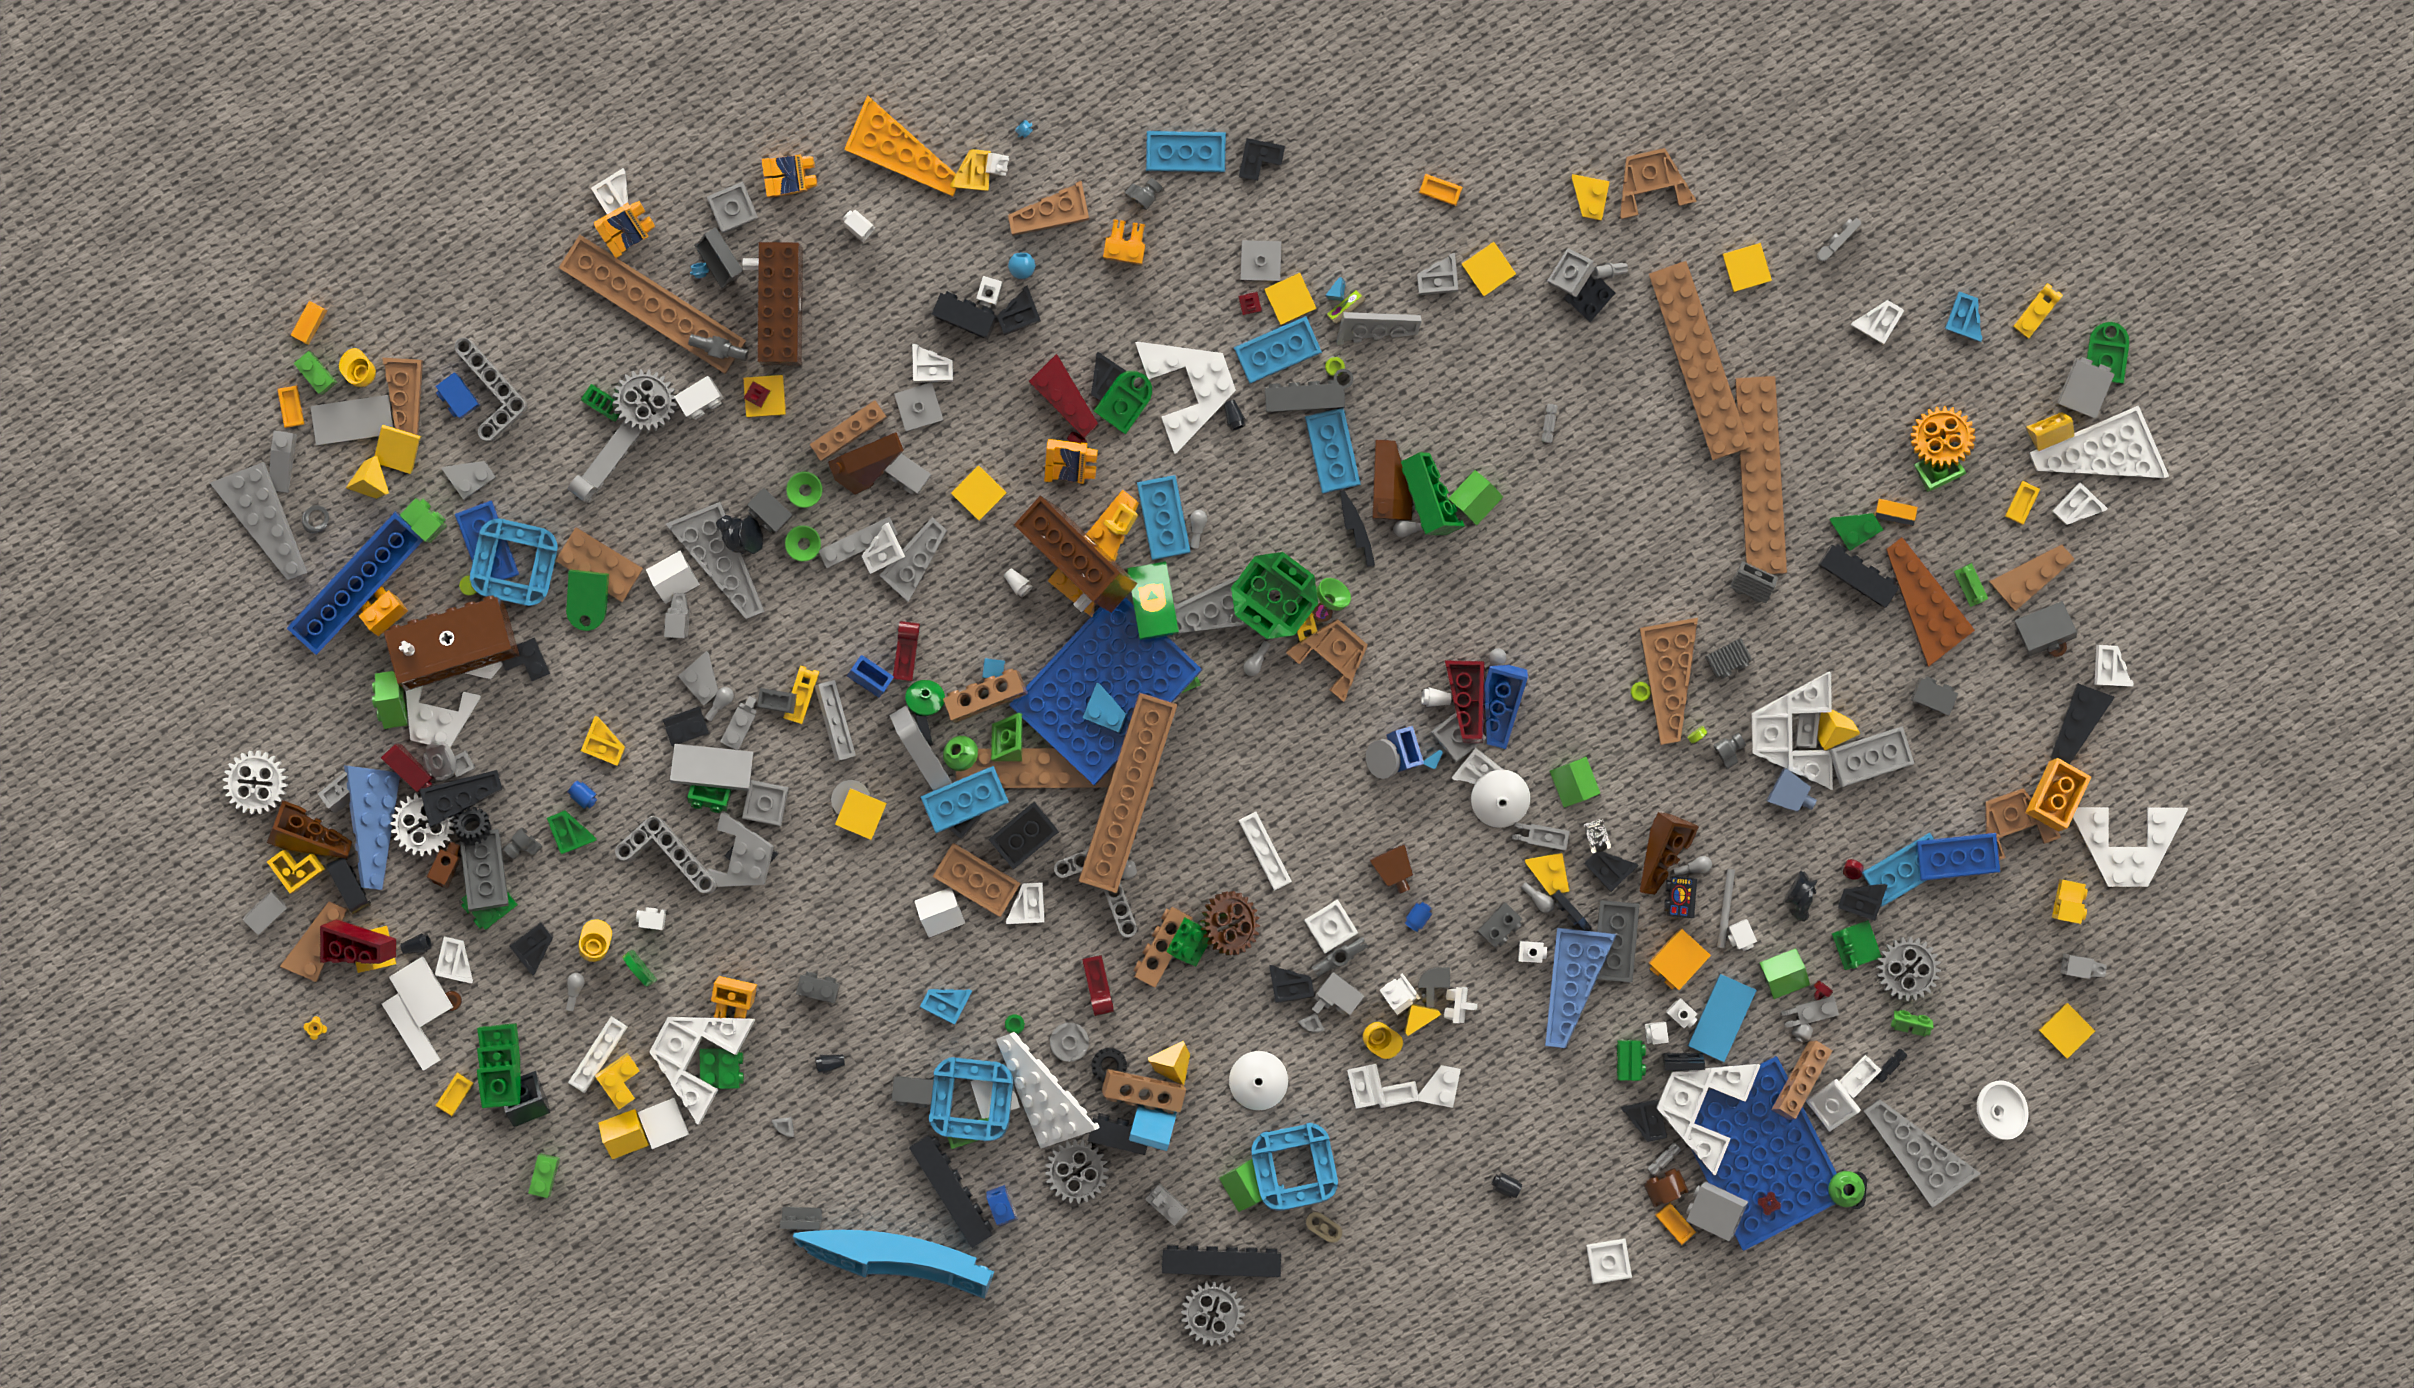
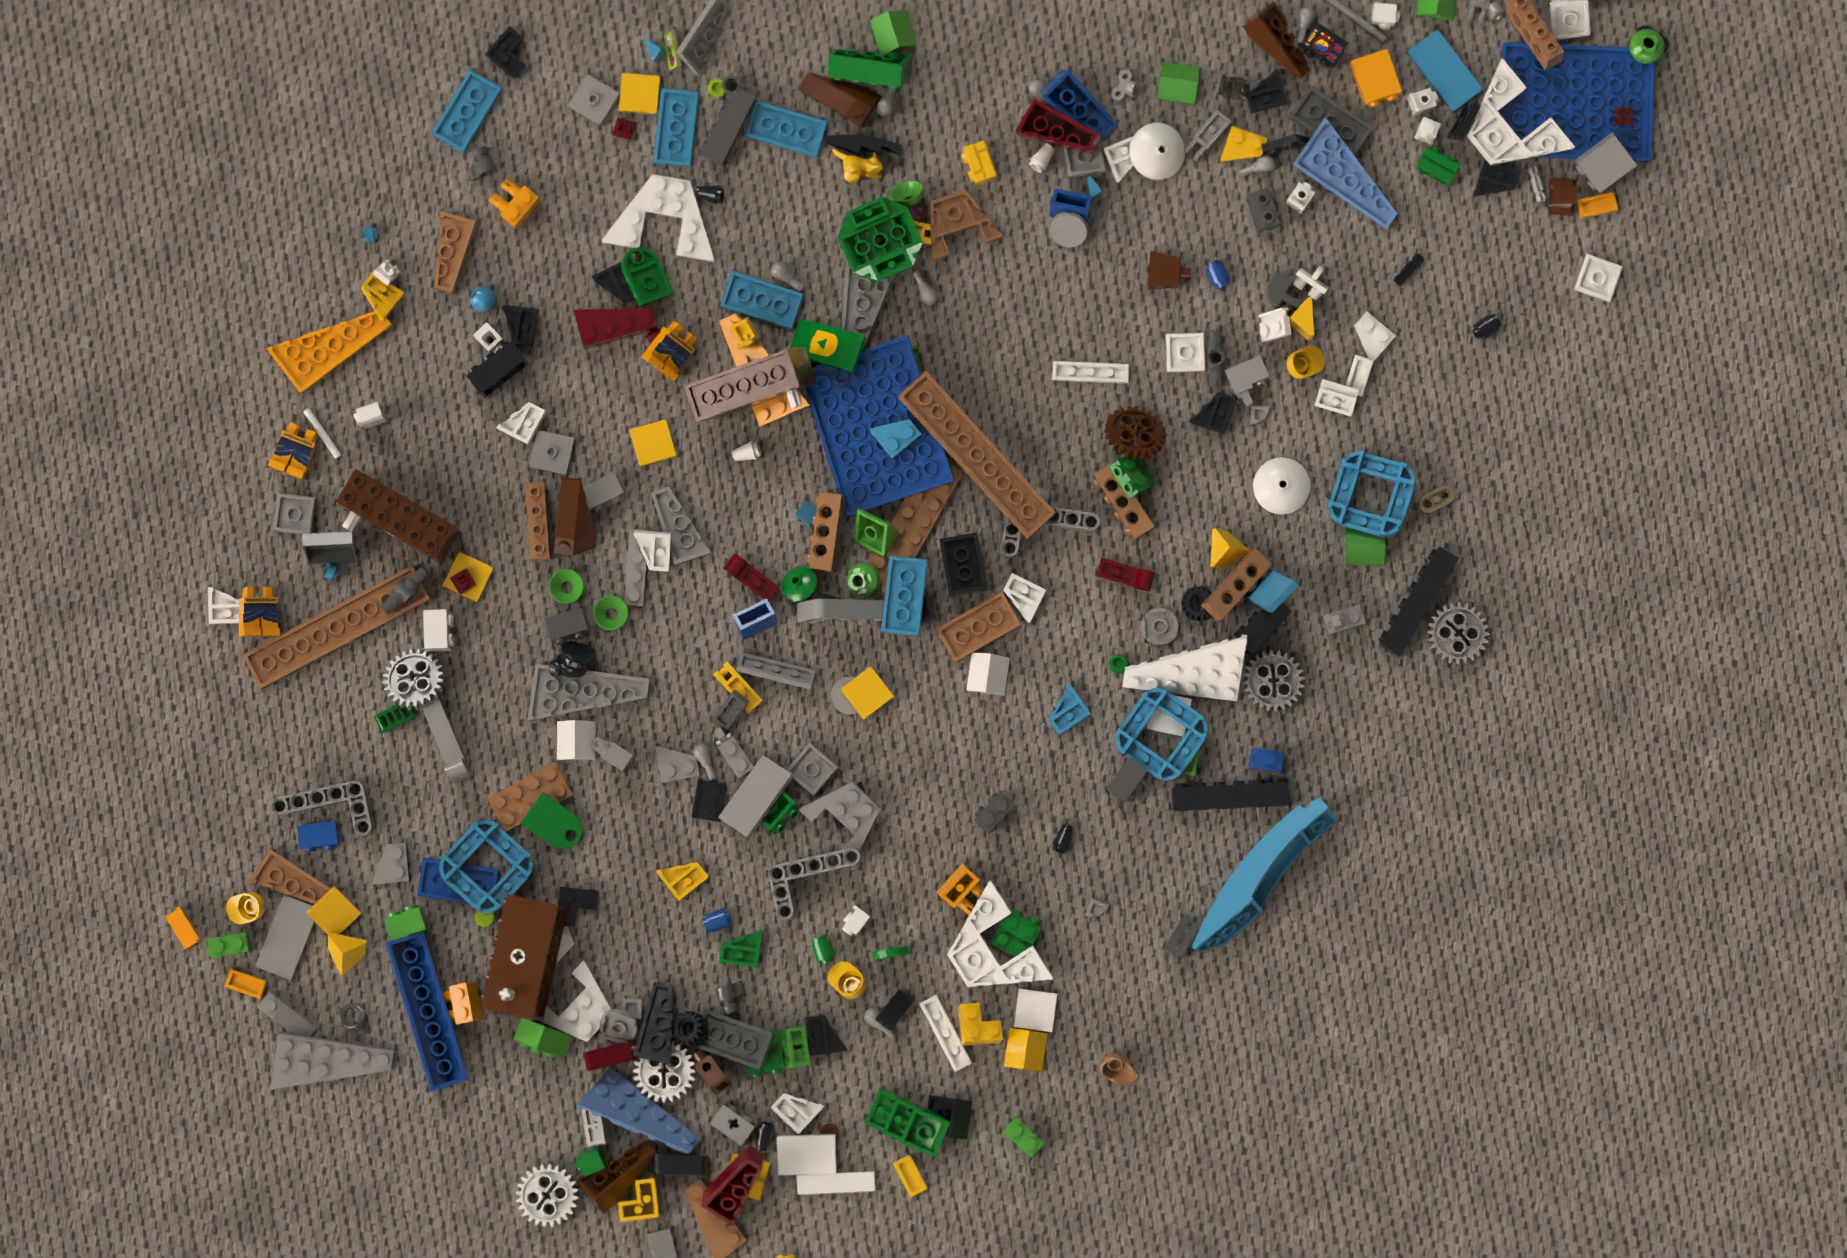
camera: 60 degrees left, 5 degrees down
(307, 804) = (591, 1160): none -> green brick
(406, 901) = (738, 1134): none -> light grey brick
(508, 929) = (795, 1047): none -> bright green brick
(591, 998) = (894, 1010): none -> black slope
(610, 904) = (823, 949): none -> green brick
(651, 1230) = (1121, 1074): none -> medium nougat cap
(819, 190) = (322, 433): none -> white bar
(1332, 534) = (855, 167): none -> yellow animal
(1399, 643) = (979, 163): none -> yellow brick
(1519, 1085) = (1409, 268): none -> black axle
(1544, 736) = (1125, 86): none -> light grey piece

